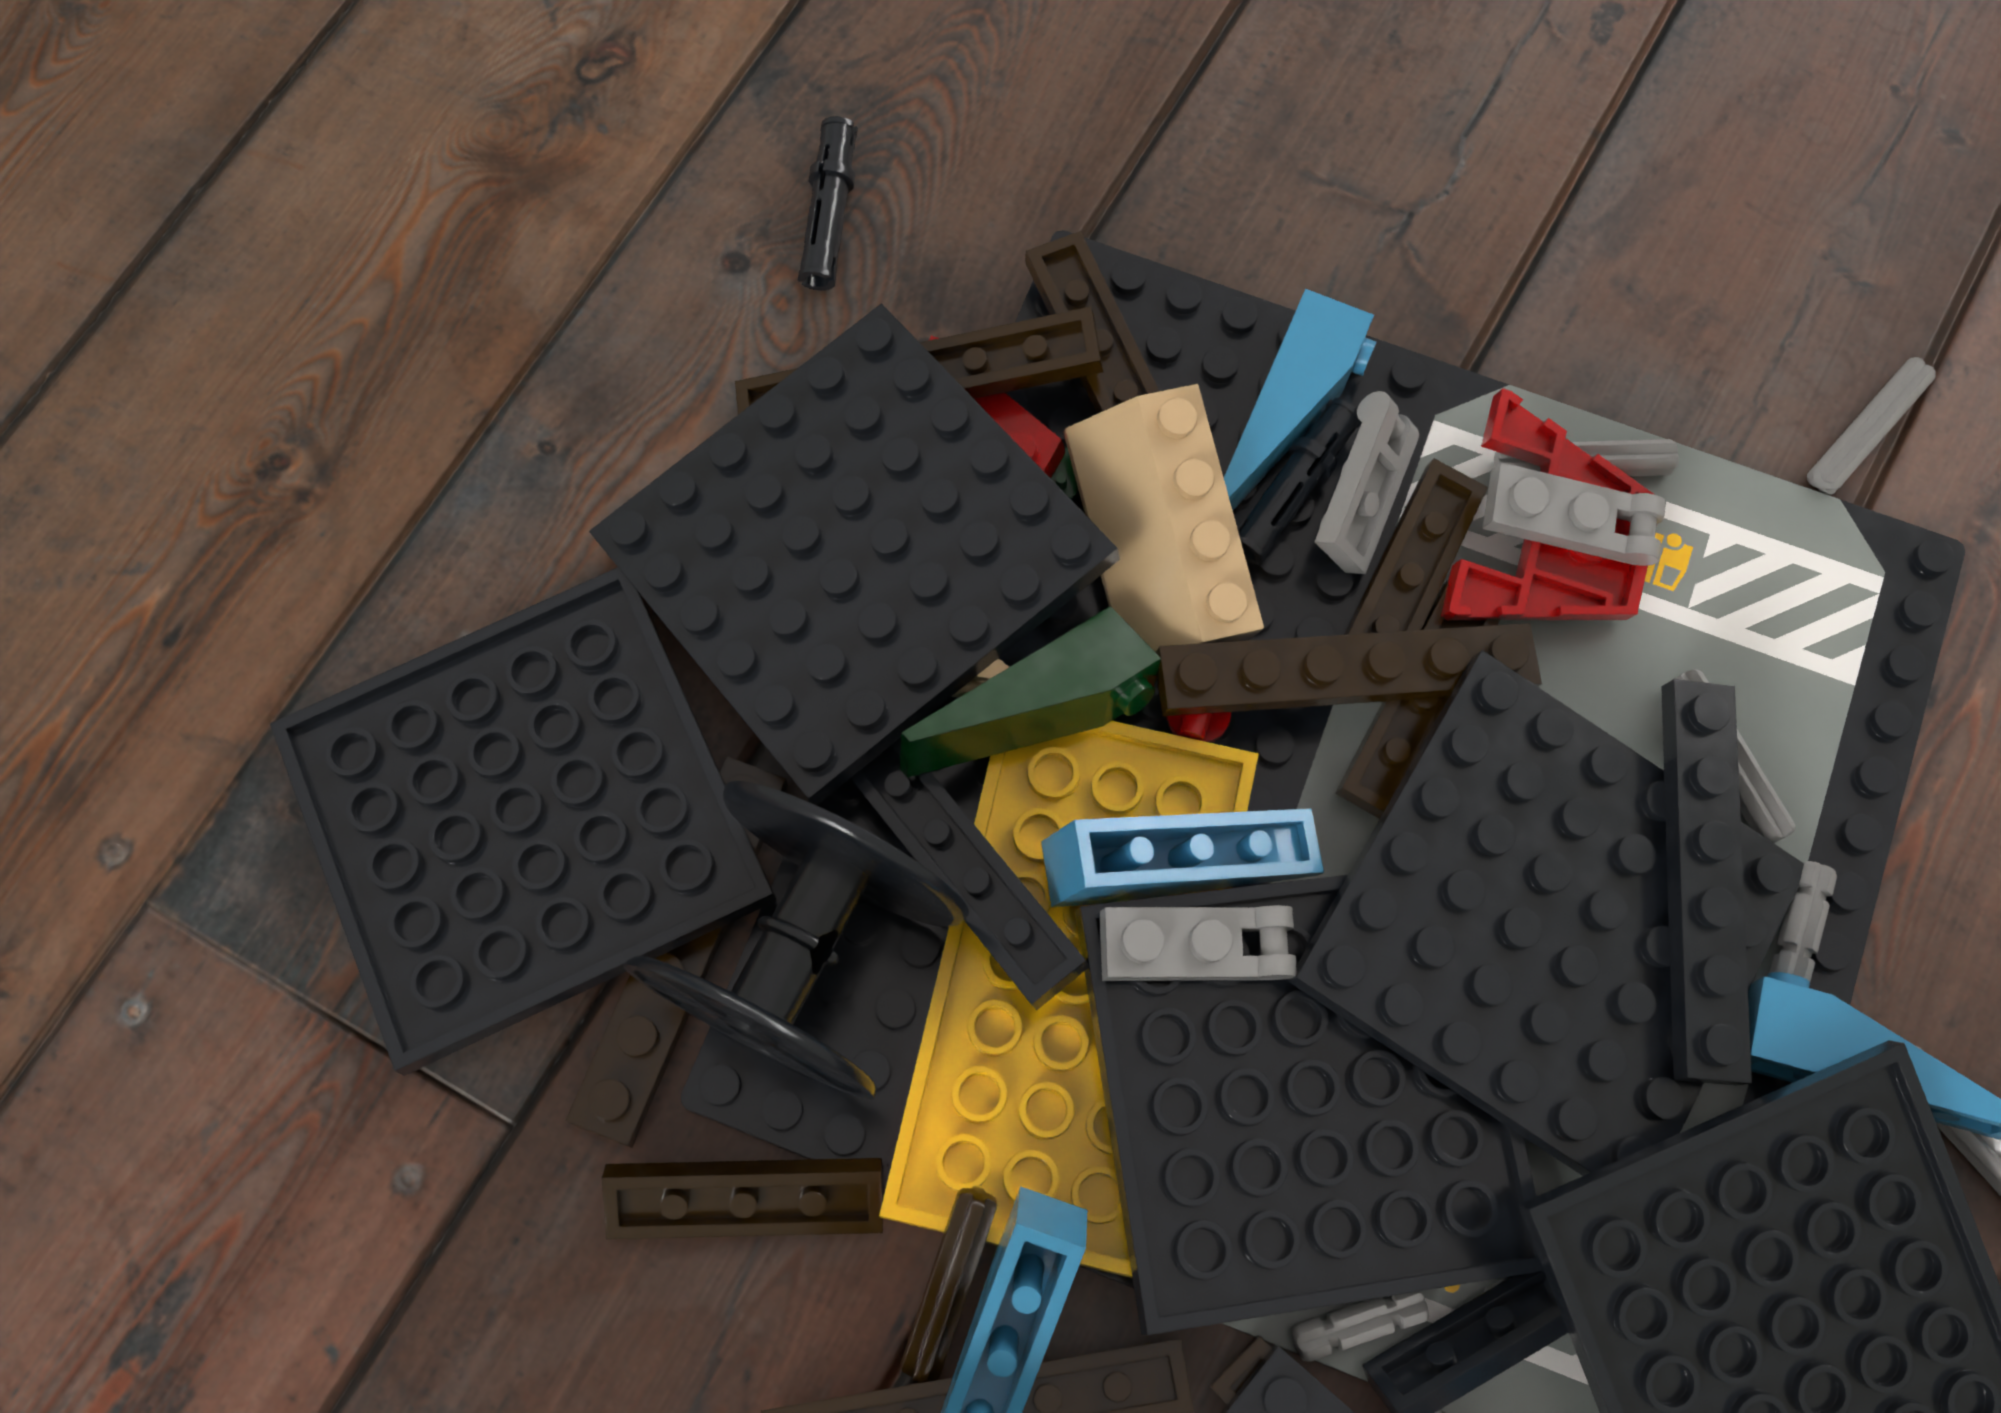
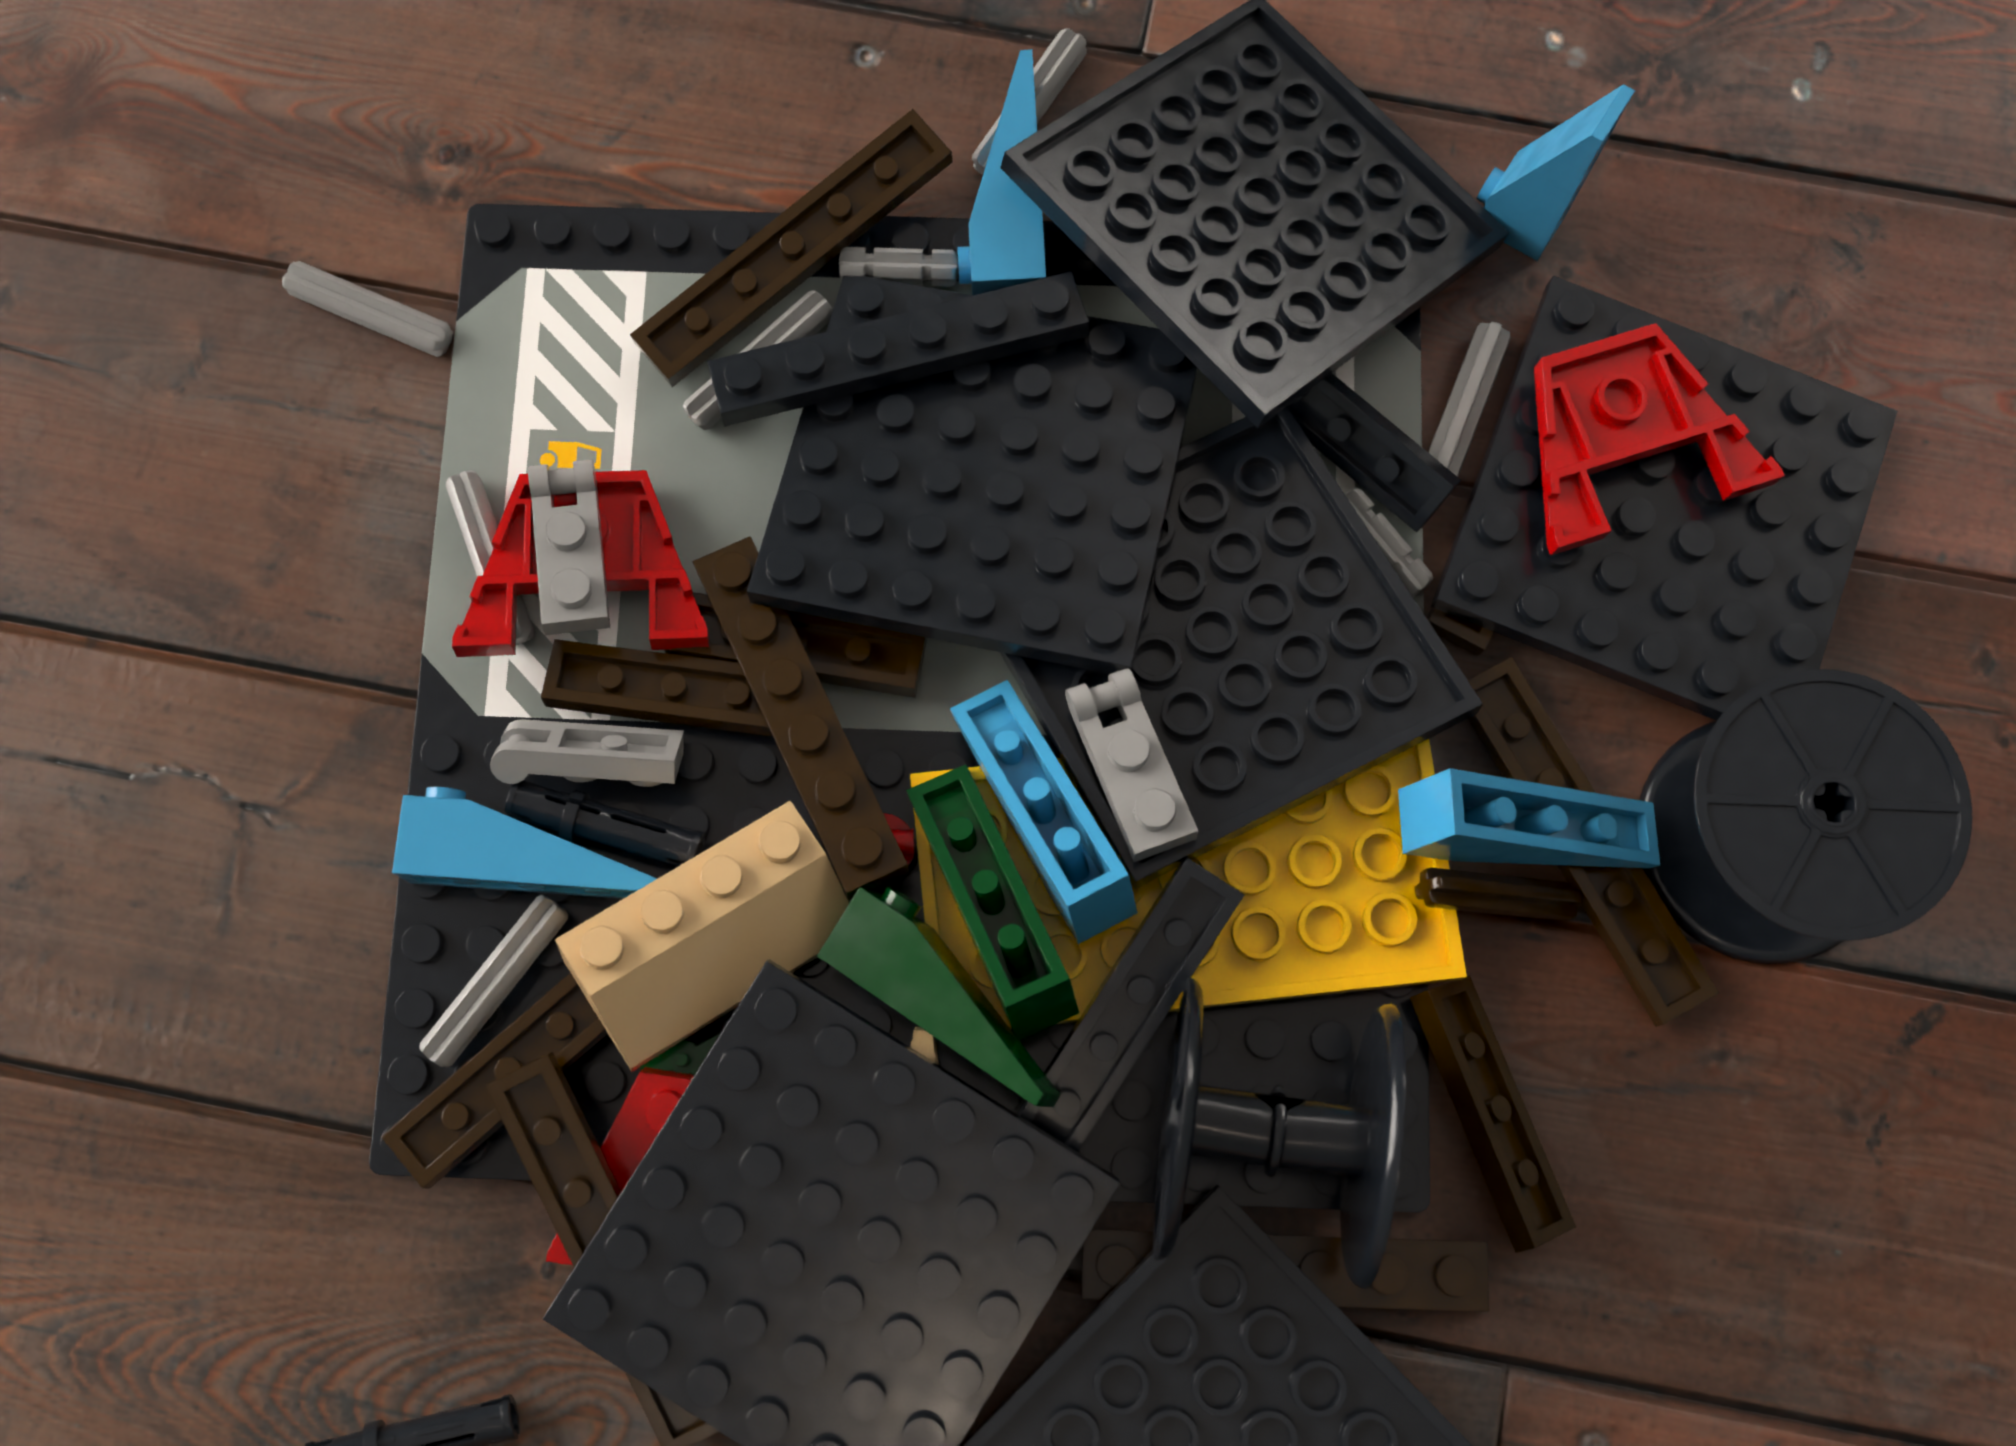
camera: 105 degrees left, 5 degrees up
(1104, 776) = (994, 903): none -> dark green slope
(1185, 355) = (493, 981): none -> light grey axle
(1851, 828) = (792, 247): none -> dark brown plate

